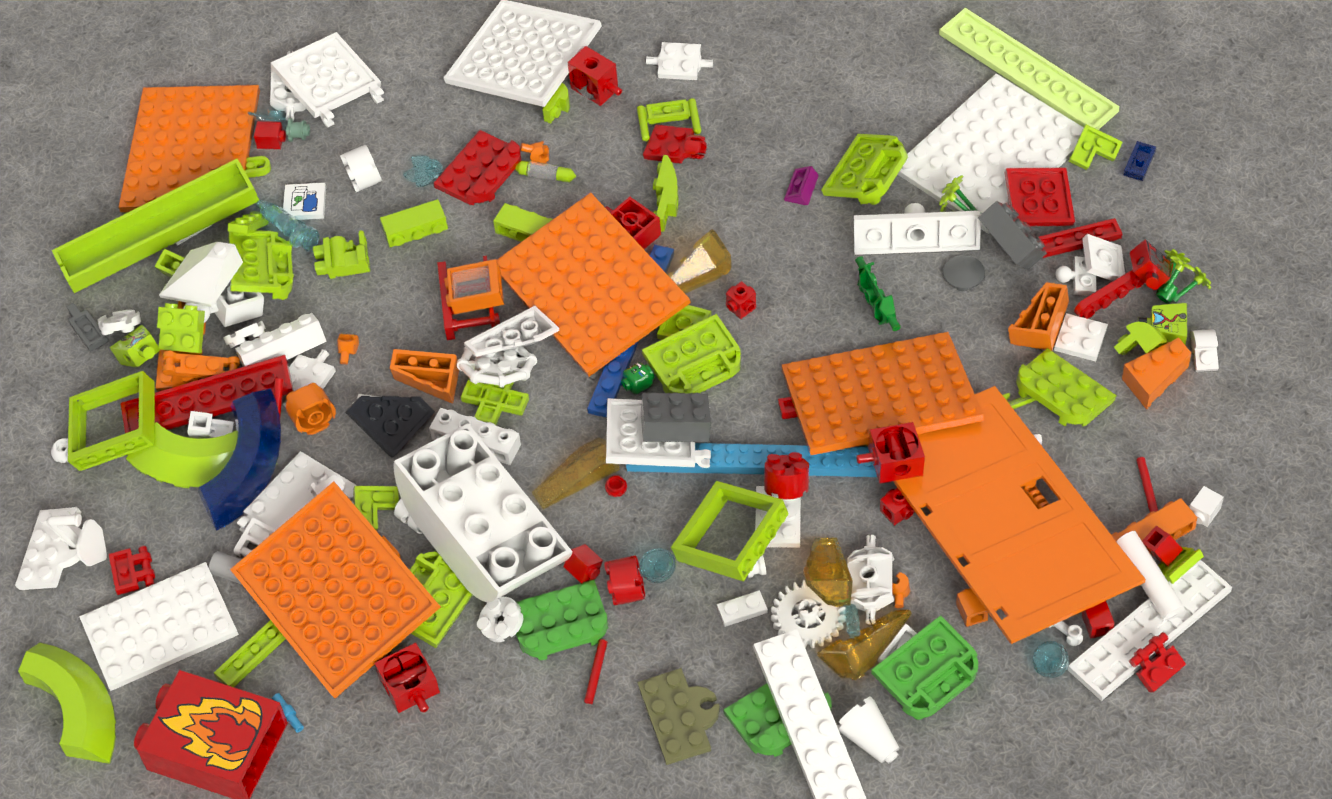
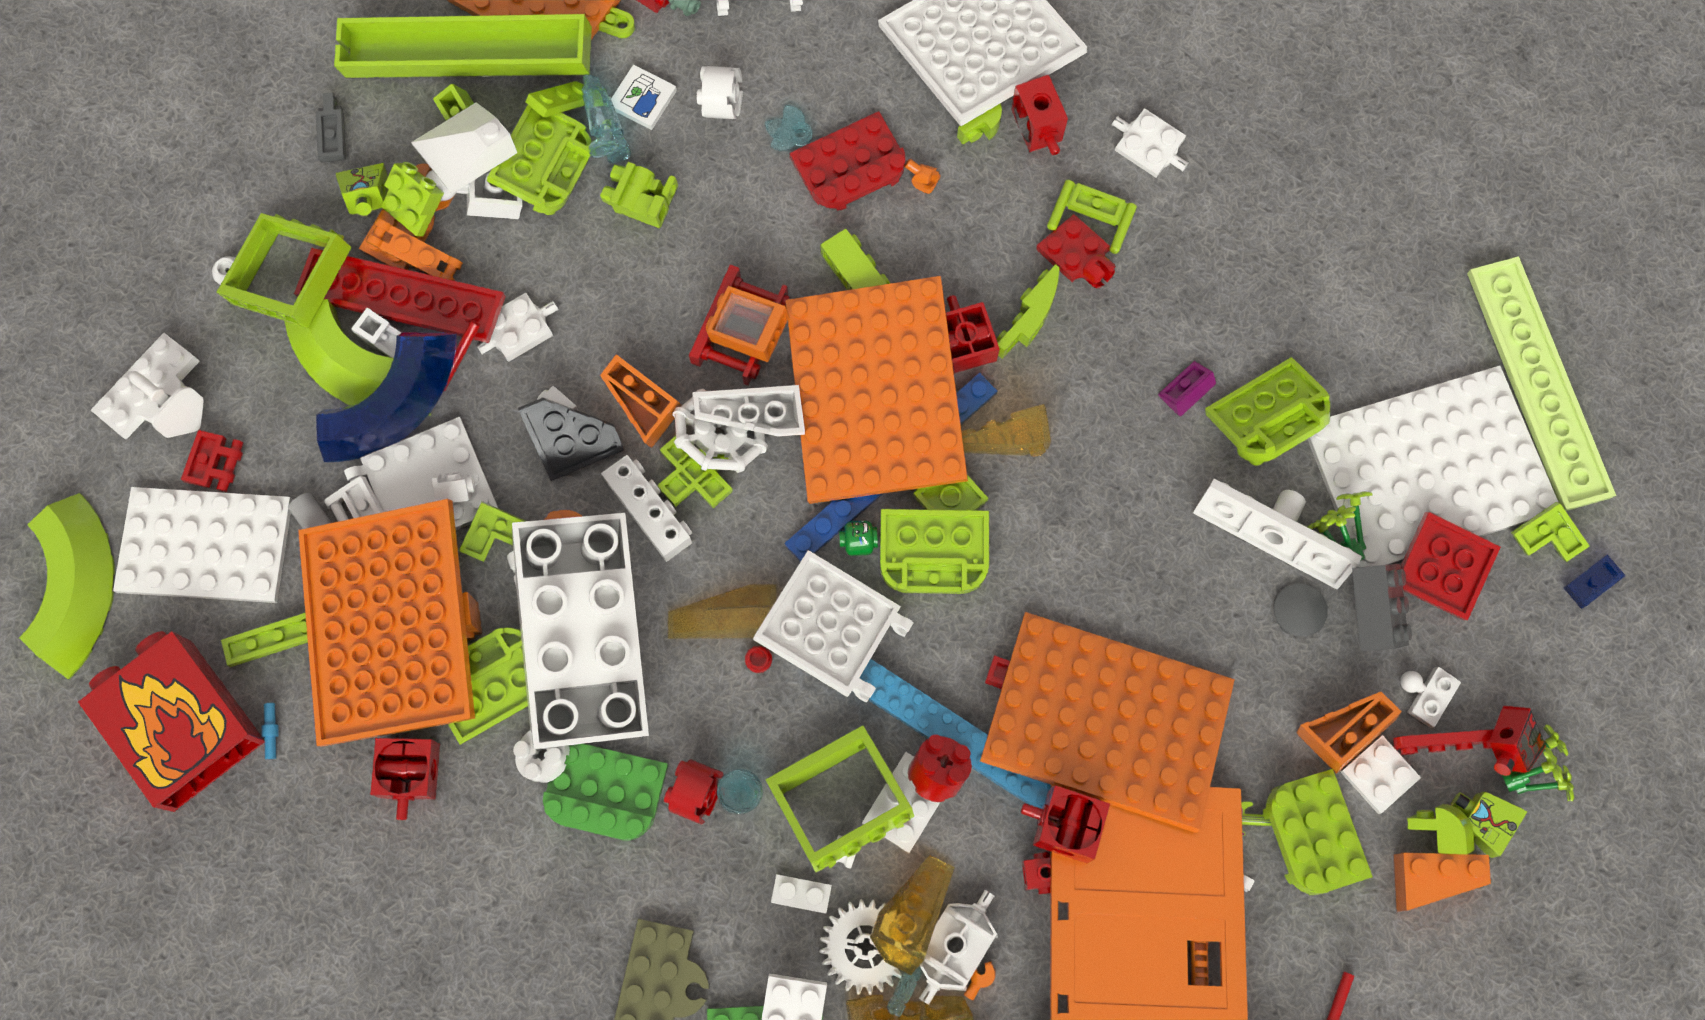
camera: 25 degrees right, 20 degrees up
(121, 320) = (364, 145): white plate -> none
(252, 331) = (480, 237): white plate -> none
(287, 340) = (512, 271): white brick -> none
(310, 409) = (493, 373): orange brick -> none
(347, 345) = (581, 312): orange piece -> none
(414, 223) = (737, 195): lime brick -> none
(545, 171) = (918, 206): piece -> none
(583, 564) = (665, 741): red brick -> none
(595, 672) = (605, 876): red bar -> none
(675, 417) = (860, 626): dark grey brick -> none
(741, 299) = (1029, 512): red brick -> none
(883, 306) = (1176, 598): green plate -> none
(1072, 240) = (1461, 644): red plate -> none
(1103, 258) = (1469, 692): white plate -> none
(1204, 347) = (1513, 877): white brick -> none

